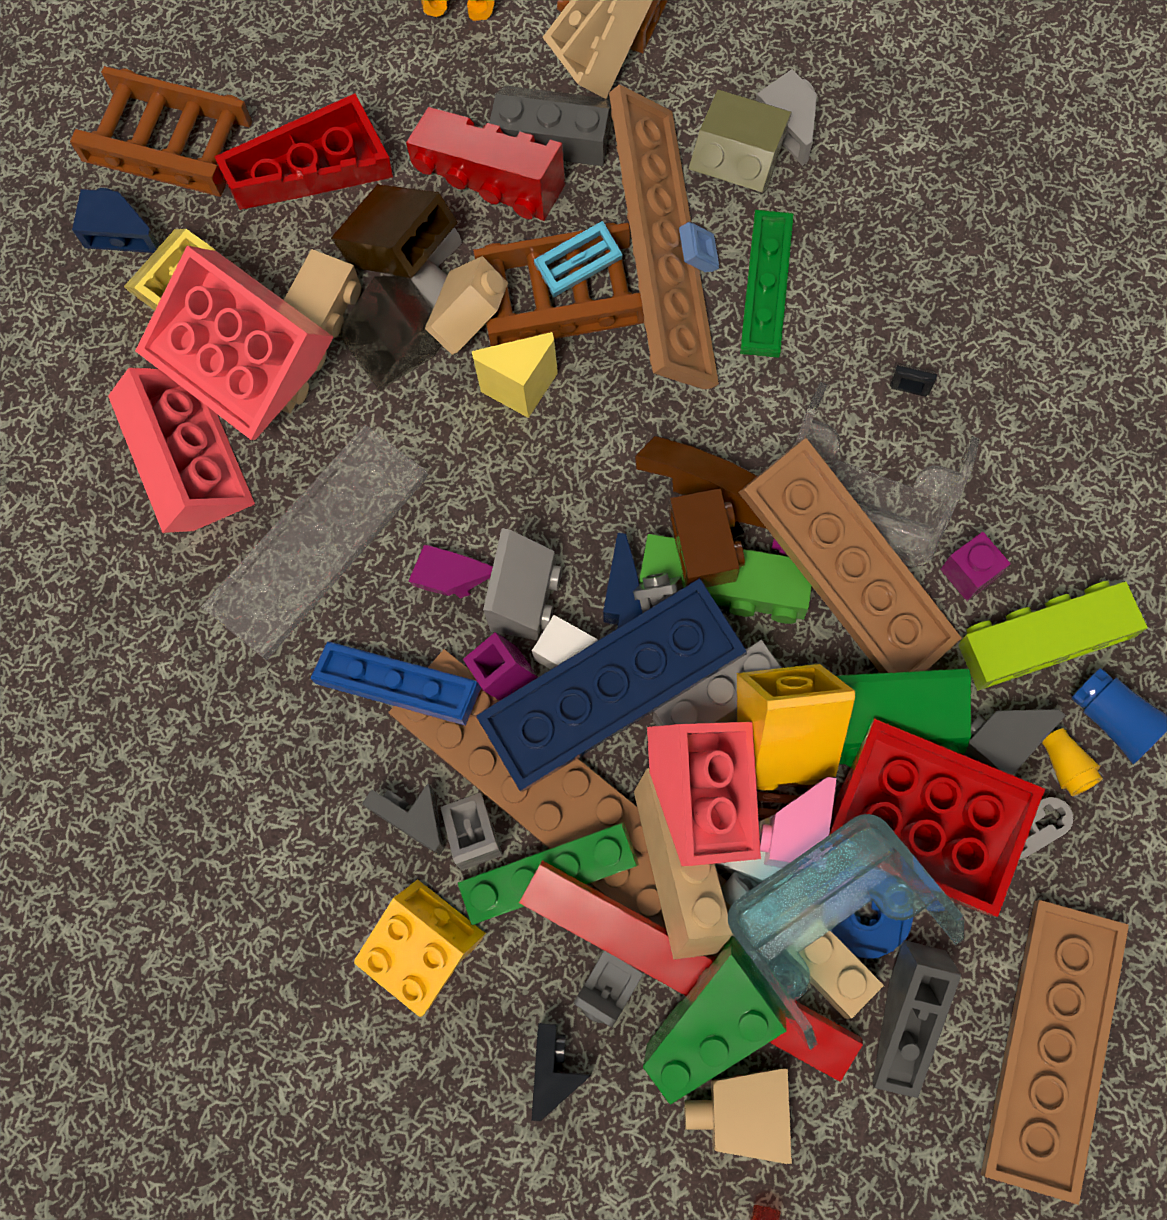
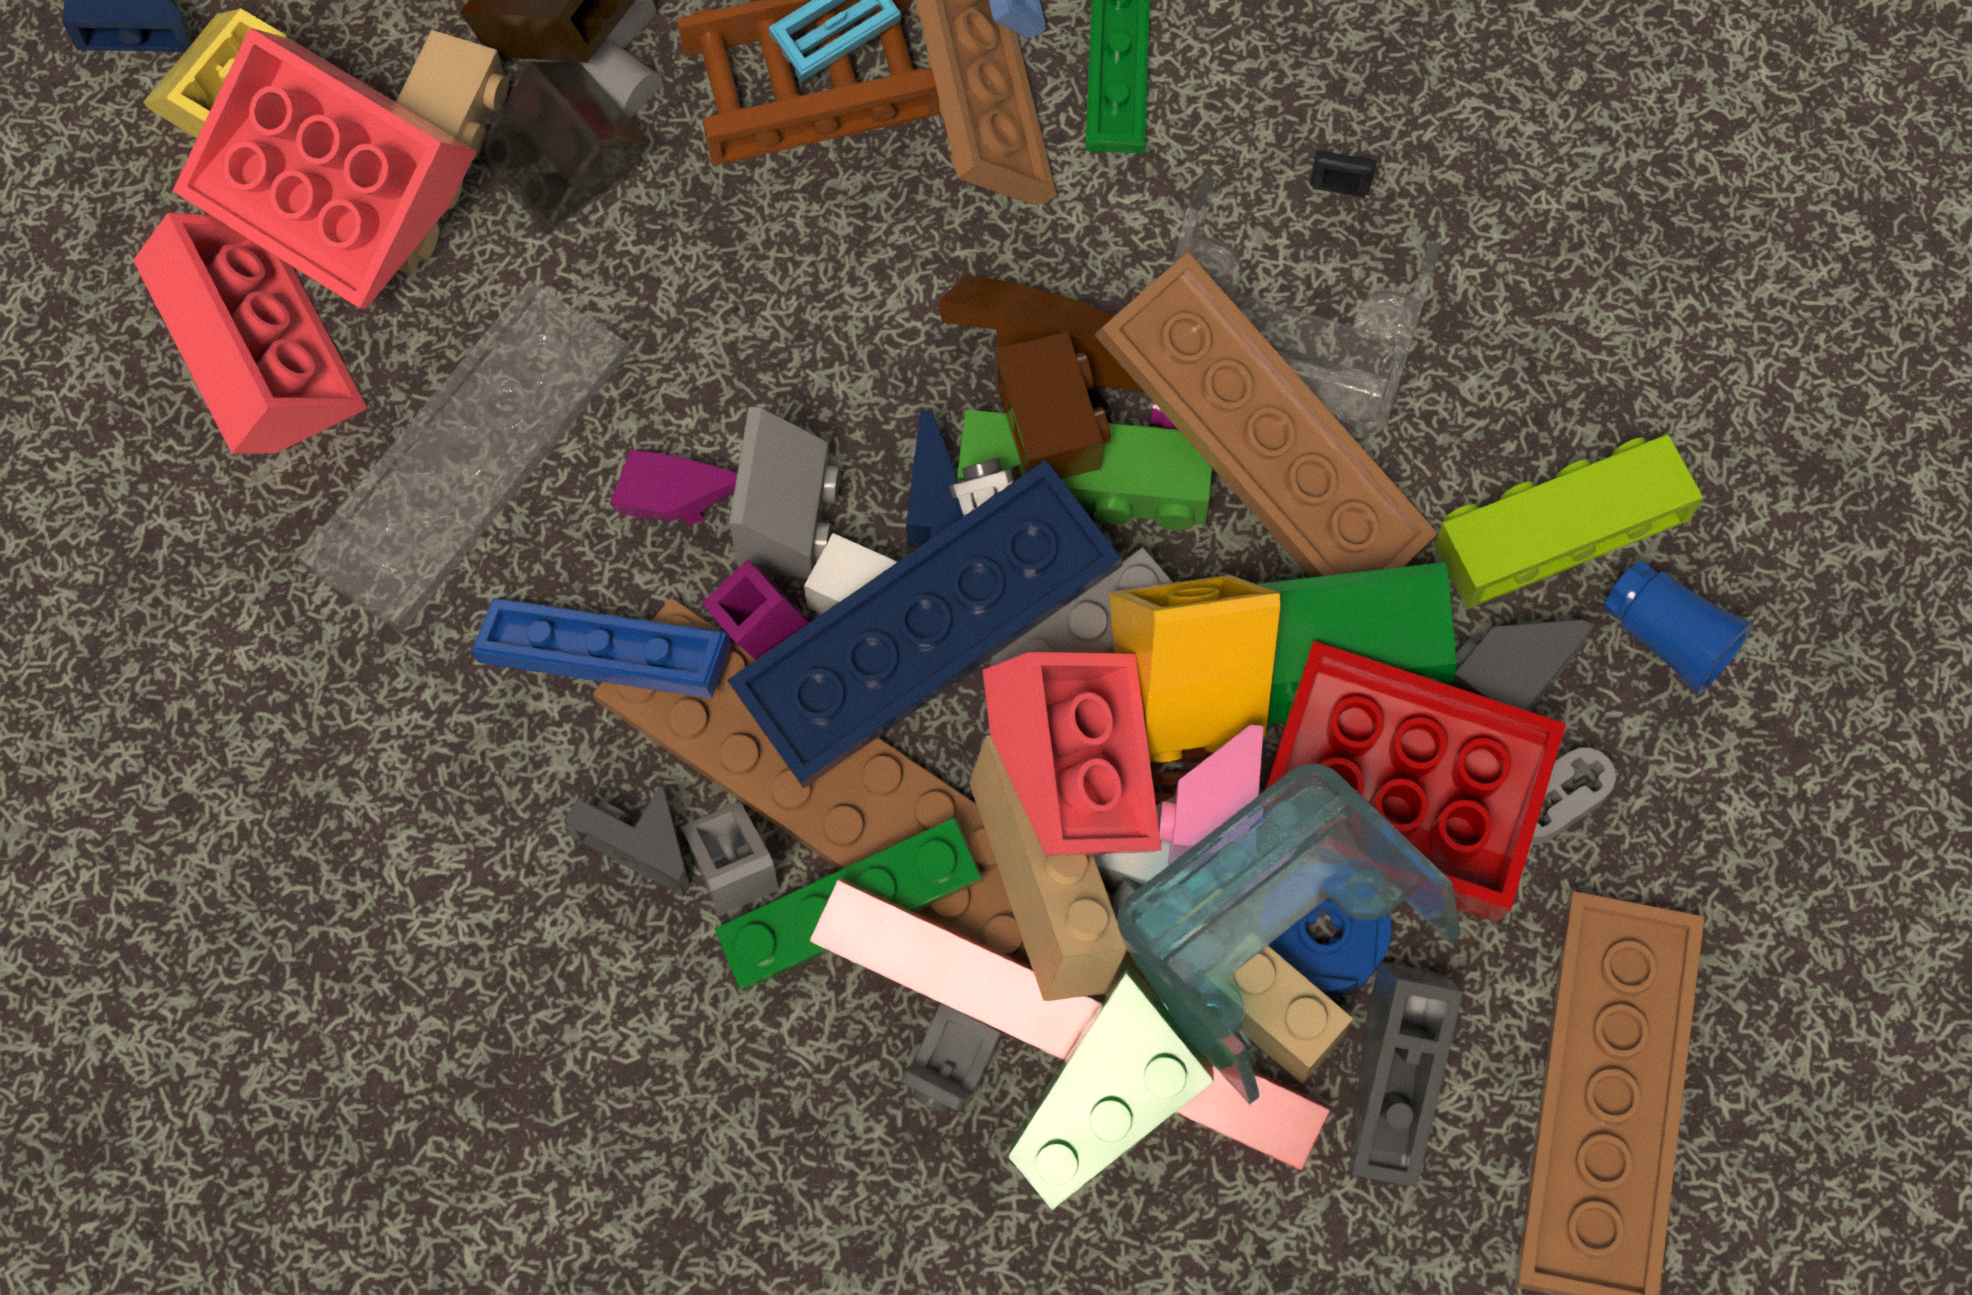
camera: 10 degrees left, 5 degrees down
(417, 946) = (658, 1026): yellow bracket -> none
(465, 303) = (671, 95): tan slope -> none
(517, 371) = (754, 189): light yellow slope -> none
(551, 1086) = (876, 1204): black slope -> none
(746, 1115) = (1166, 1224): tan torso -> none
(975, 566) = (1449, 429): magenta brick -> none
(1071, 764) = (1609, 700): yellow cone -> none

